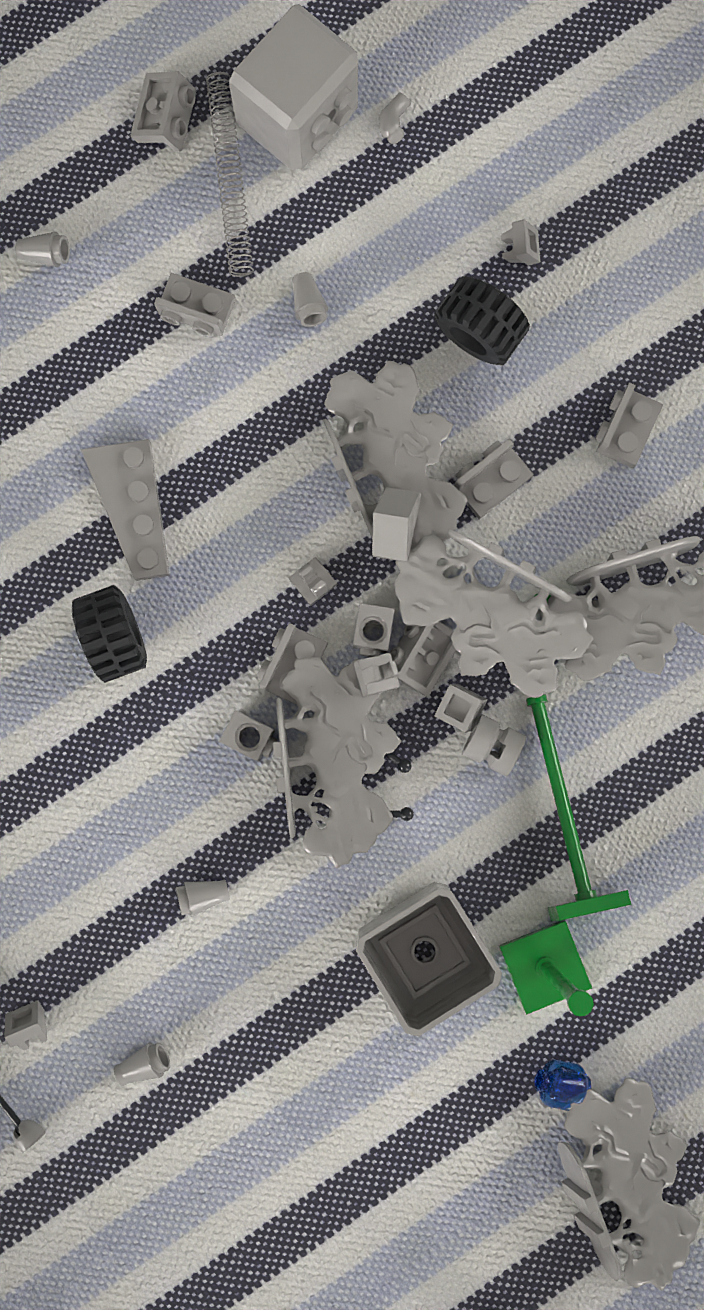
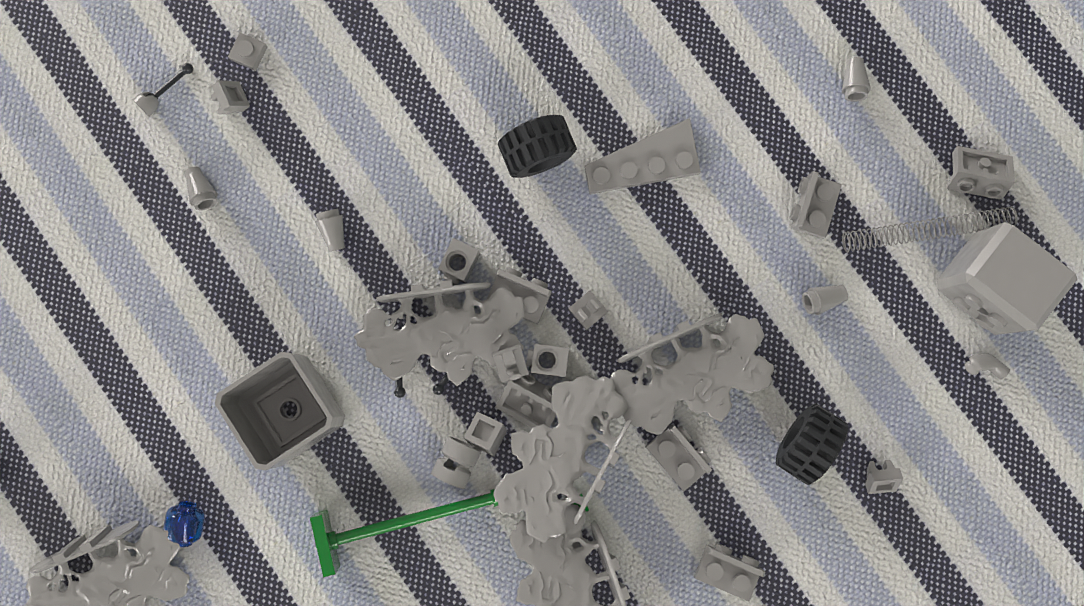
camera: 90 degrees right, 0 degrees up
(394, 524) = (635, 374): light grey slope -> none
(548, 970) = (273, 510): green tile -> none

